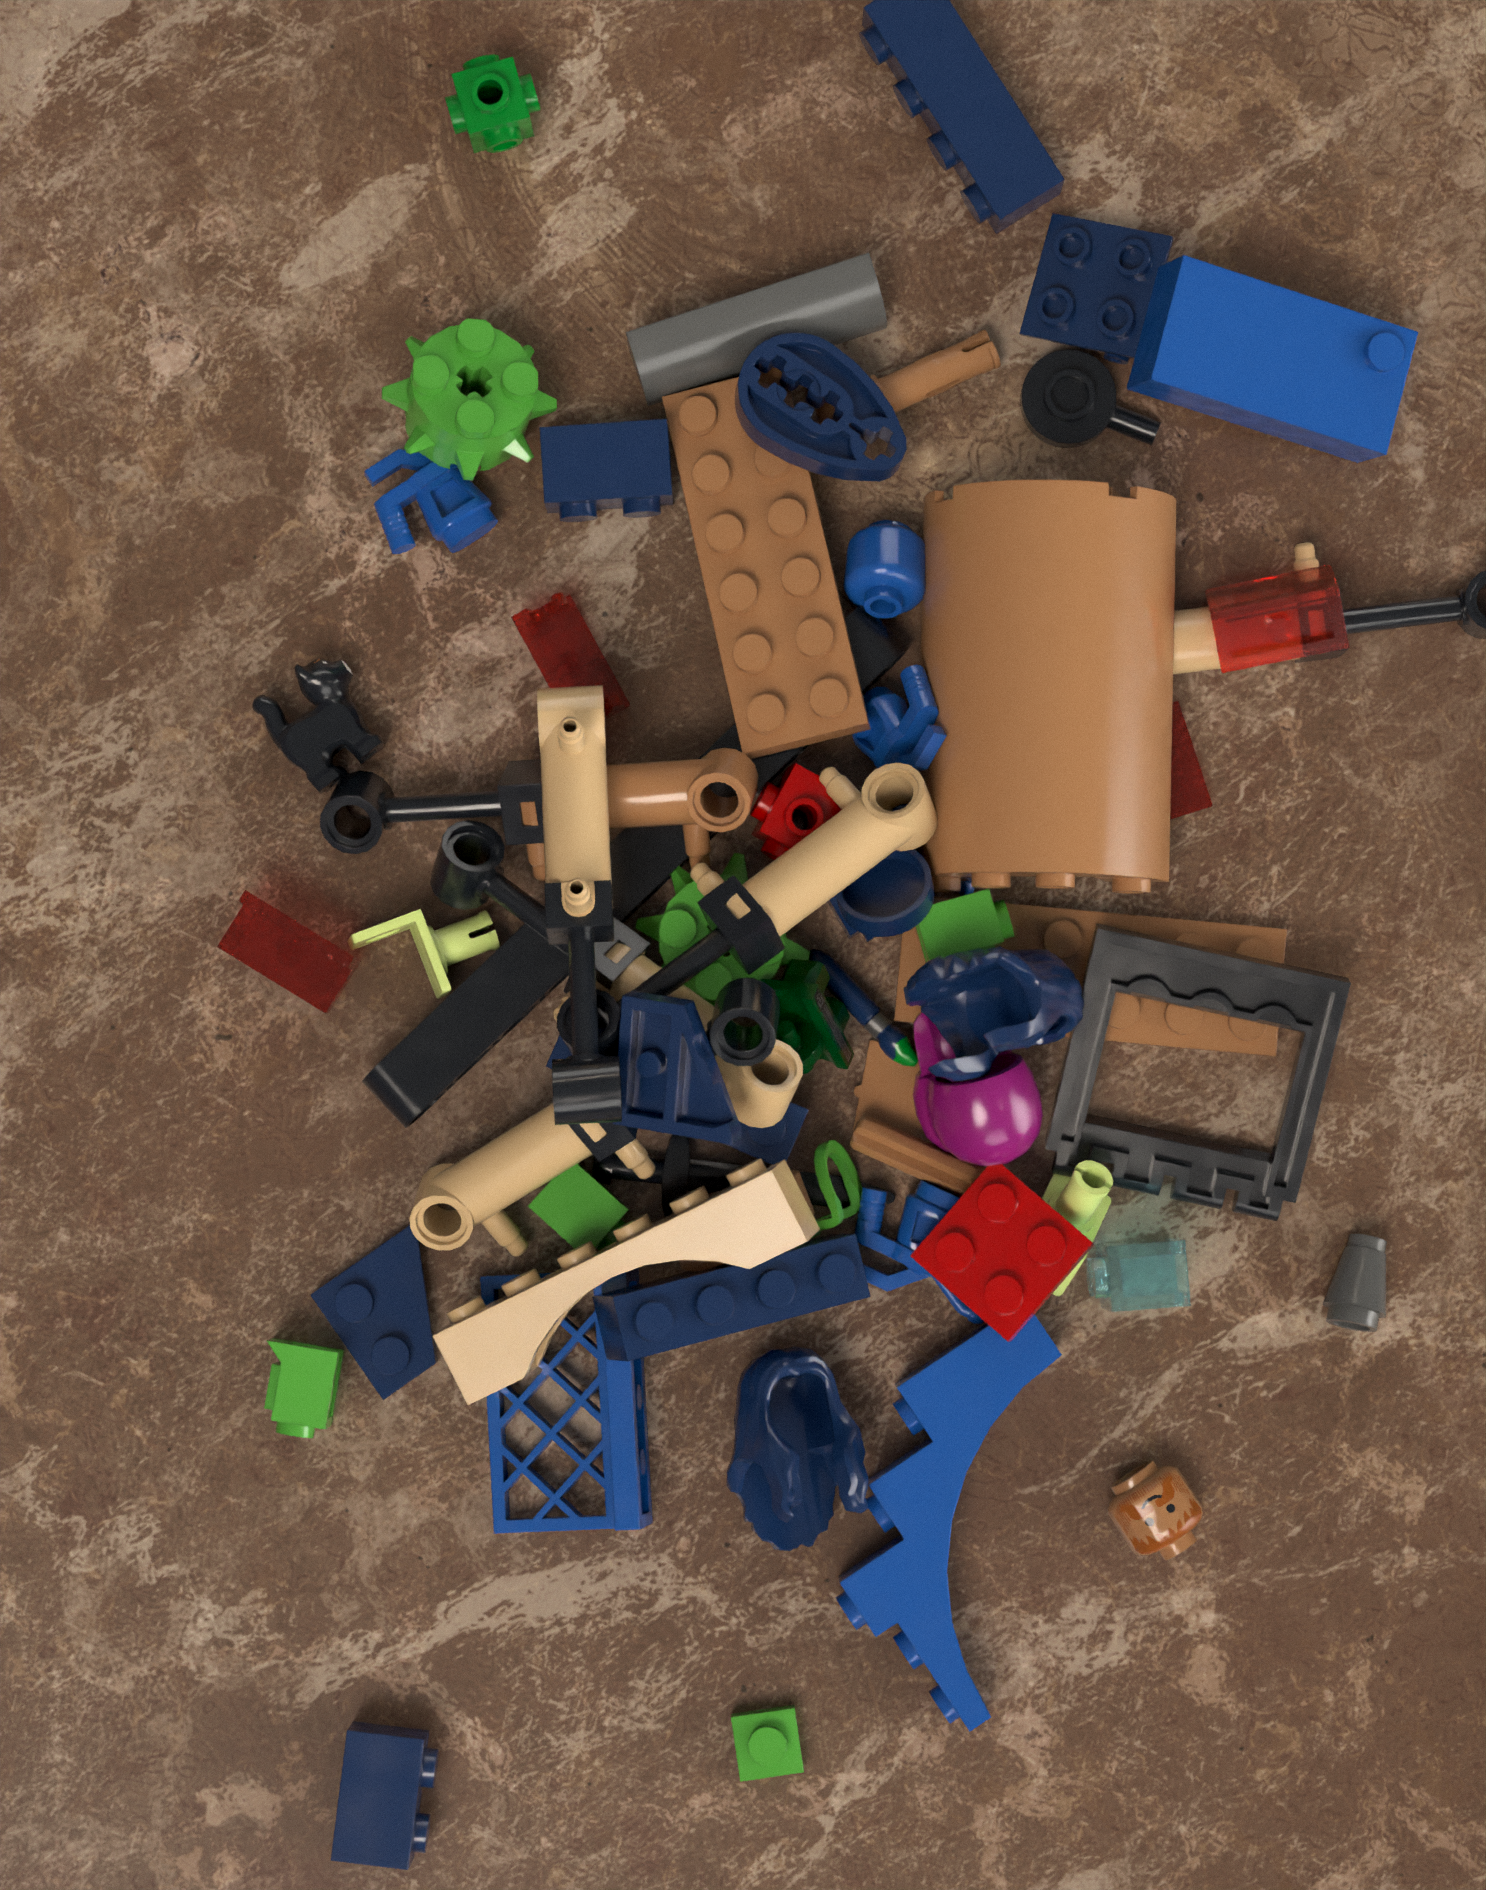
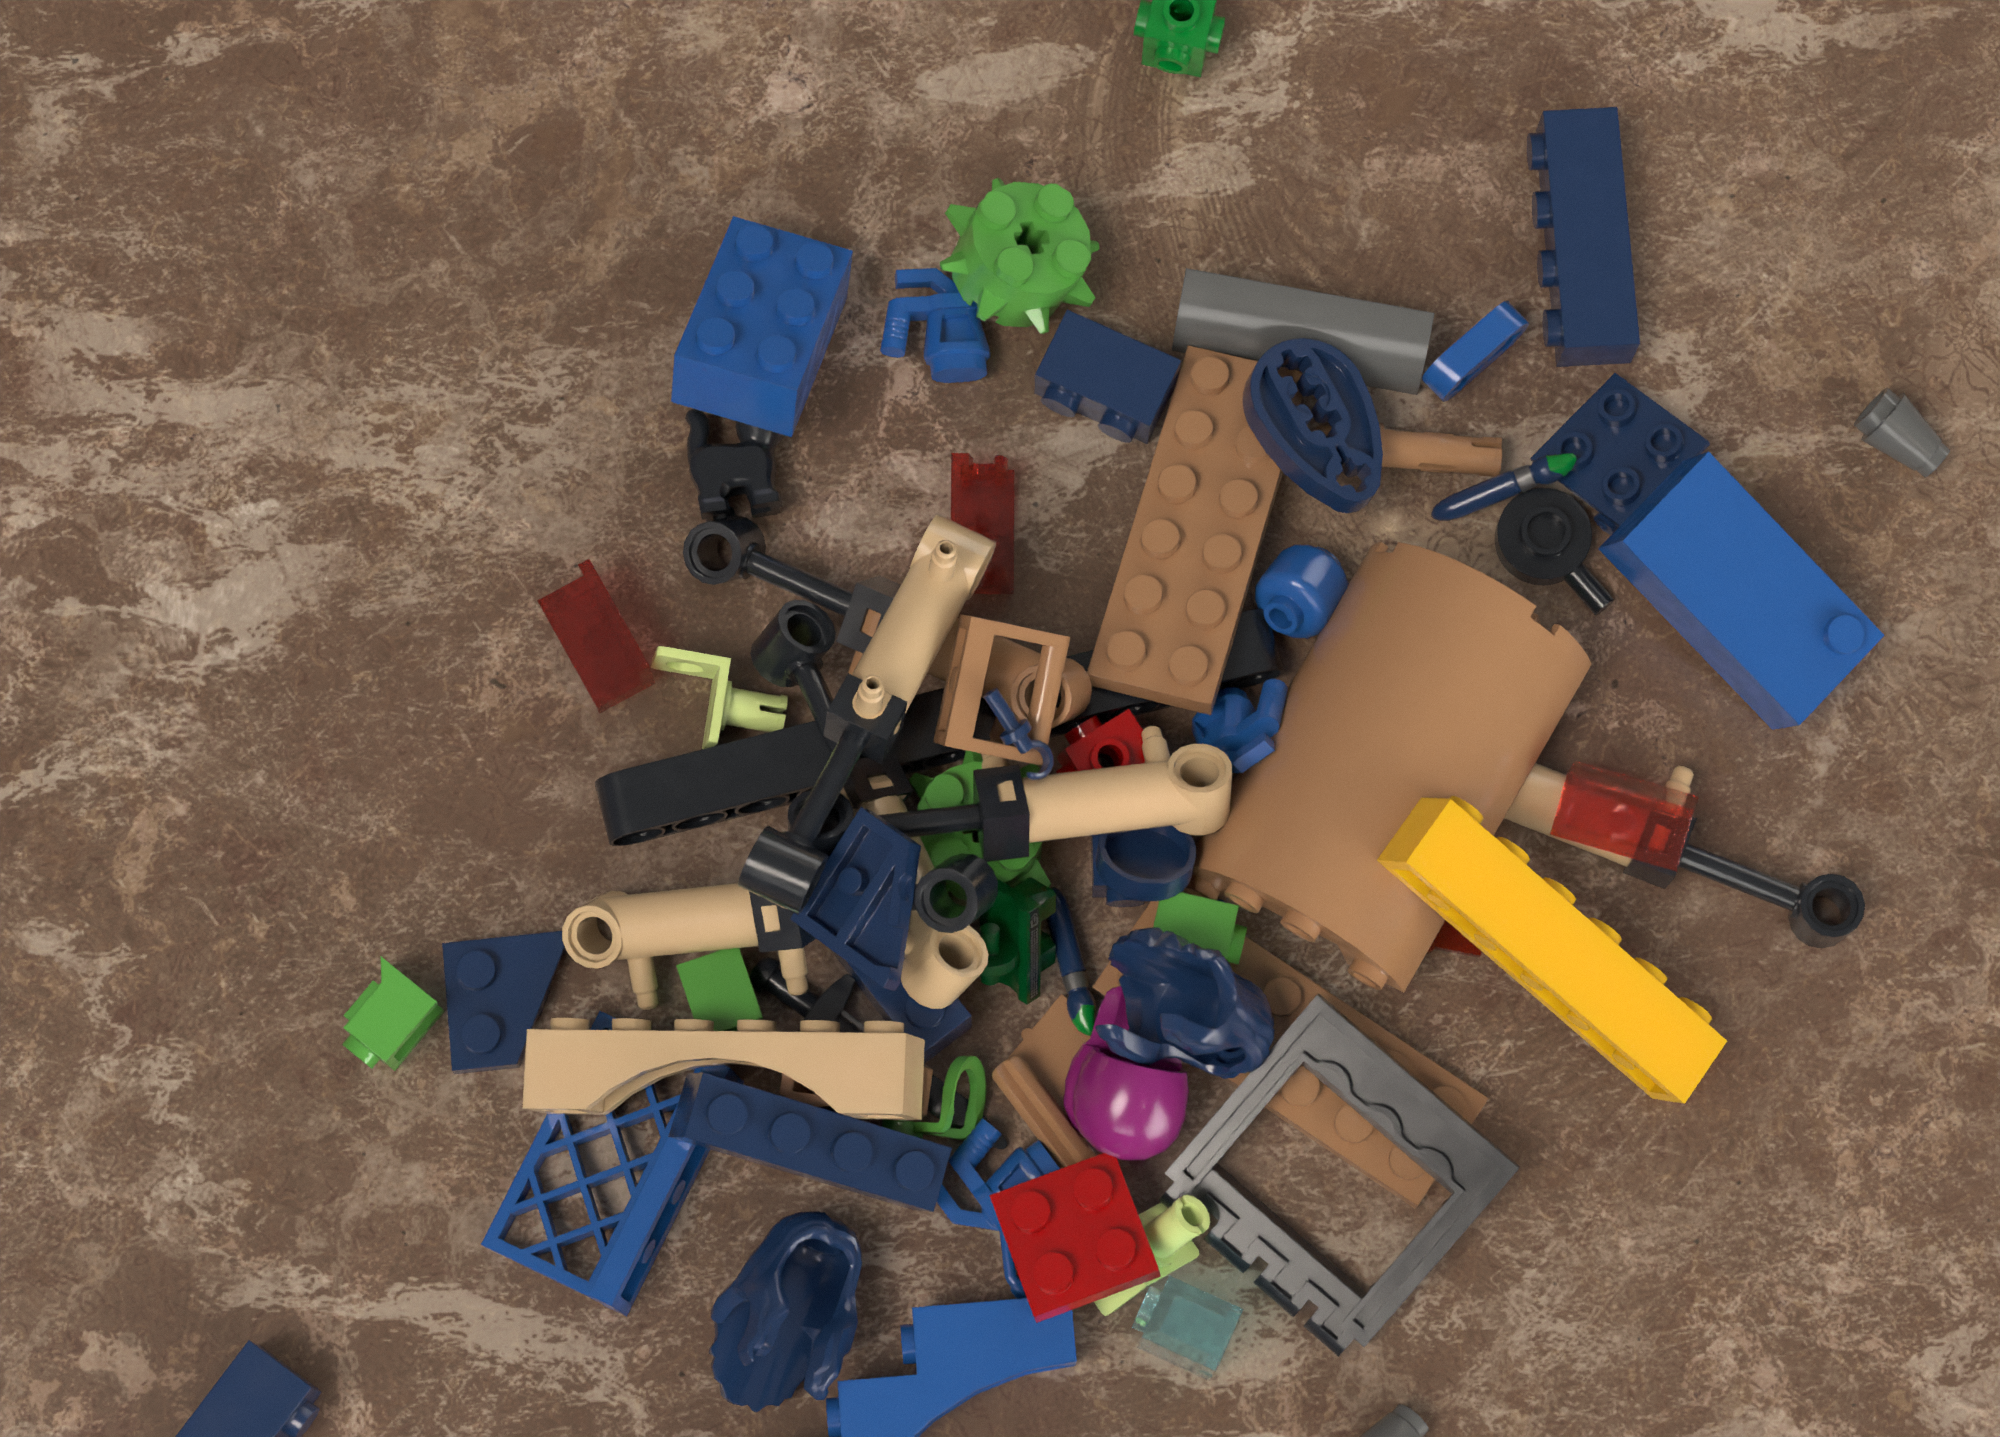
camera: 25 degrees right, 10 degrees down
(277, 593) = (761, 326): none -> blue brick
(648, 828) = (967, 679): none -> medium nougat tile
(719, 850) = (1017, 731): none -> dark blue hand
(919, 262) = (1475, 351): none -> blue beam
(1038, 342) = (1504, 486): none -> dark blue piece
(1279, 776) = (1553, 948): none -> yellow brick
(1333, 131) = (1901, 432): none -> dark grey cone

